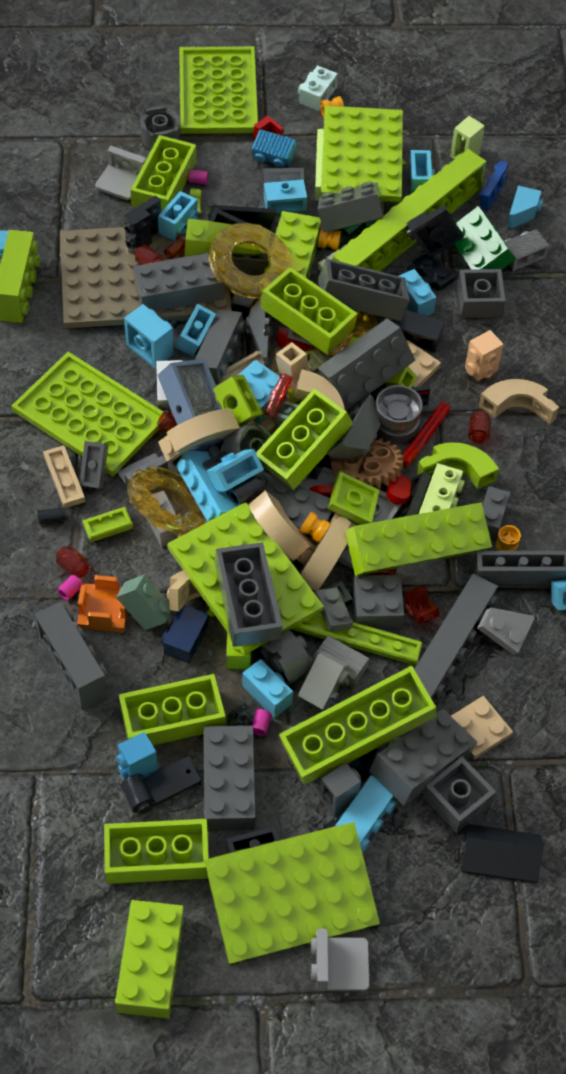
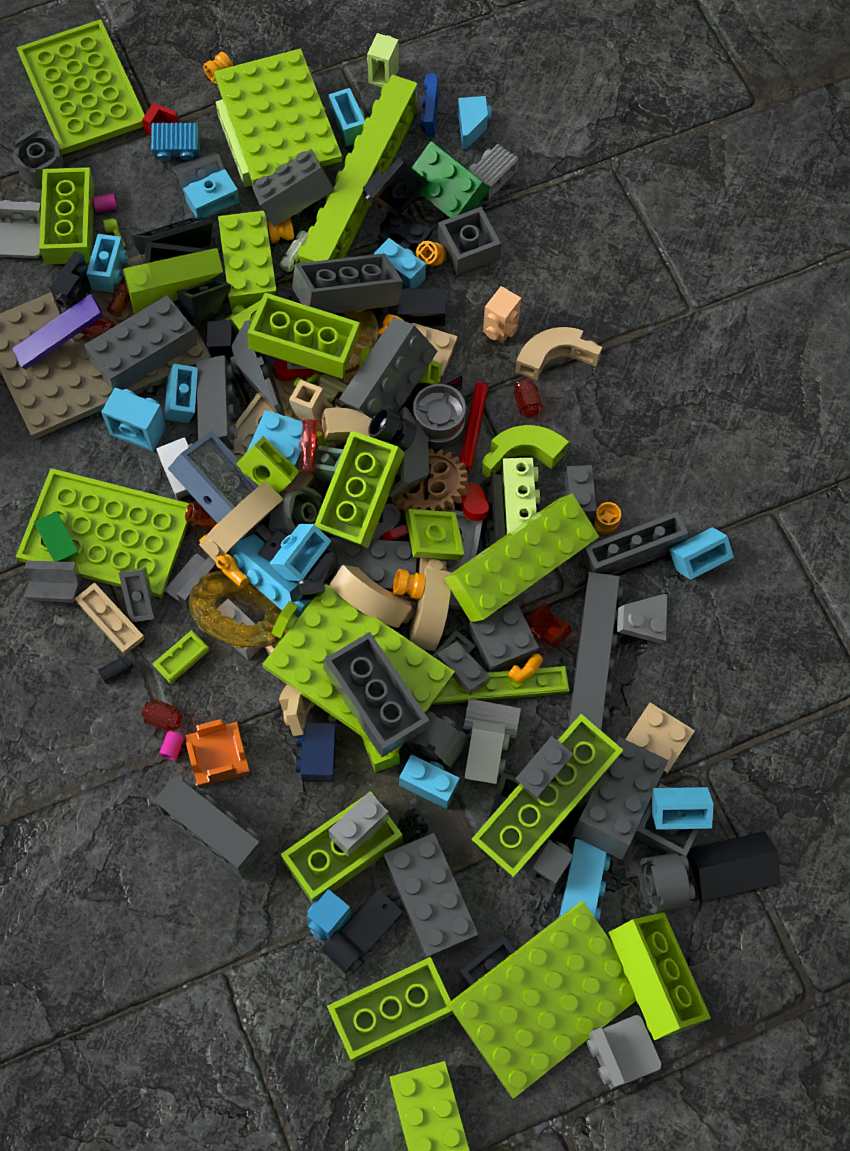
camera: 20 degrees left, 10 degrees up
(31, 432) = (52, 581): none -> flat silver panel
(48, 402) = (56, 538): none -> green tile
(117, 252) = (58, 331): none -> tile
(144, 602) = (262, 736): sand green brick -> none
(175, 468) = (231, 569): none -> light orange arm
(191, 691) = (358, 824): none -> light grey brick
(200, 516) = (285, 620): none -> lime plate
(227, 500) = (307, 590): none -> black plate
(228, 273) = (192, 317): clear yellow plate -> none
(261, 722) = (437, 821): dark pink hinge -> none
(317, 87) = (192, 47): light aqua brick -> none
(348, 399) = (392, 429): none -> black wheel
(361, 694) = (544, 767): none -> dark grey brick
(387, 631) = (529, 669): none -> light orange arm
(396, 909) = (659, 975): none -> lime brick
(433, 839) = (666, 882): none -> dark grey brick
(445, 293) = (437, 253): none -> light orange wheel
(470, 777) = (682, 808): none -> medium azure brick

